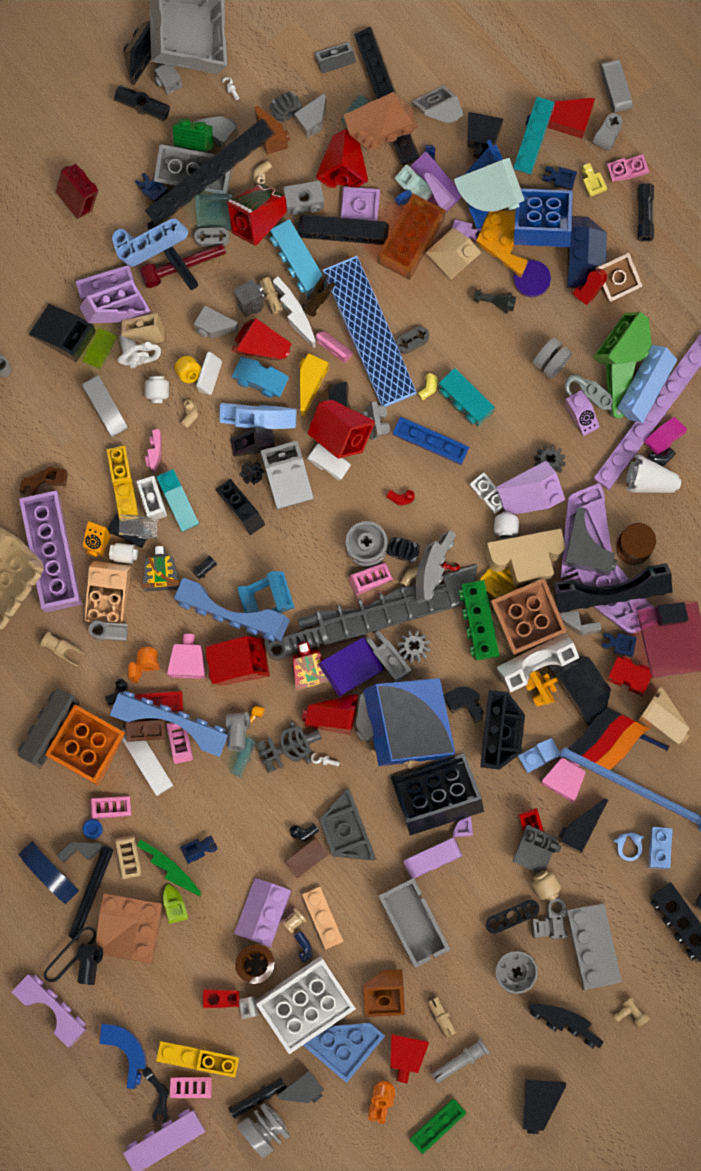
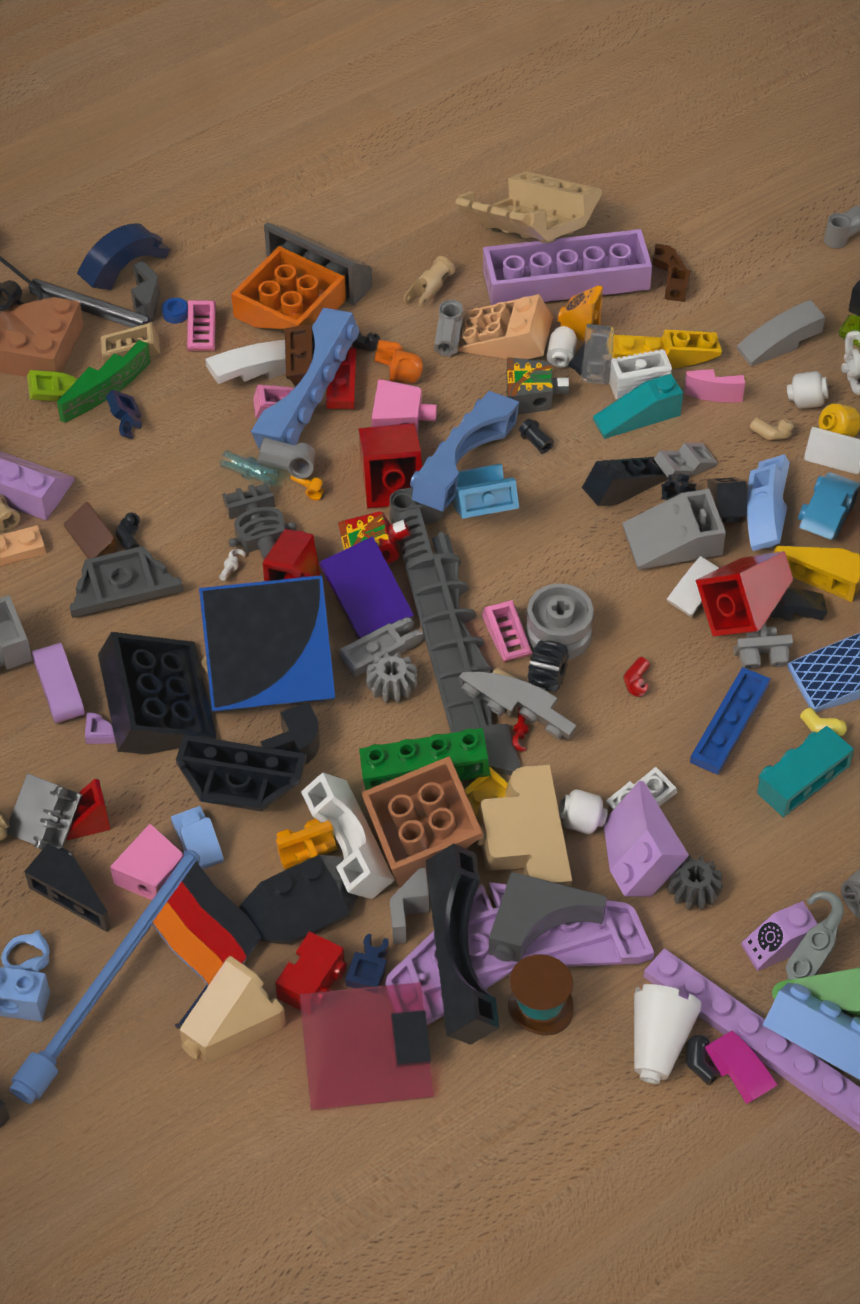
camera: 90 degrees right, 25 degrees down
(222, 469) = (689, 460): none -> light grey slope

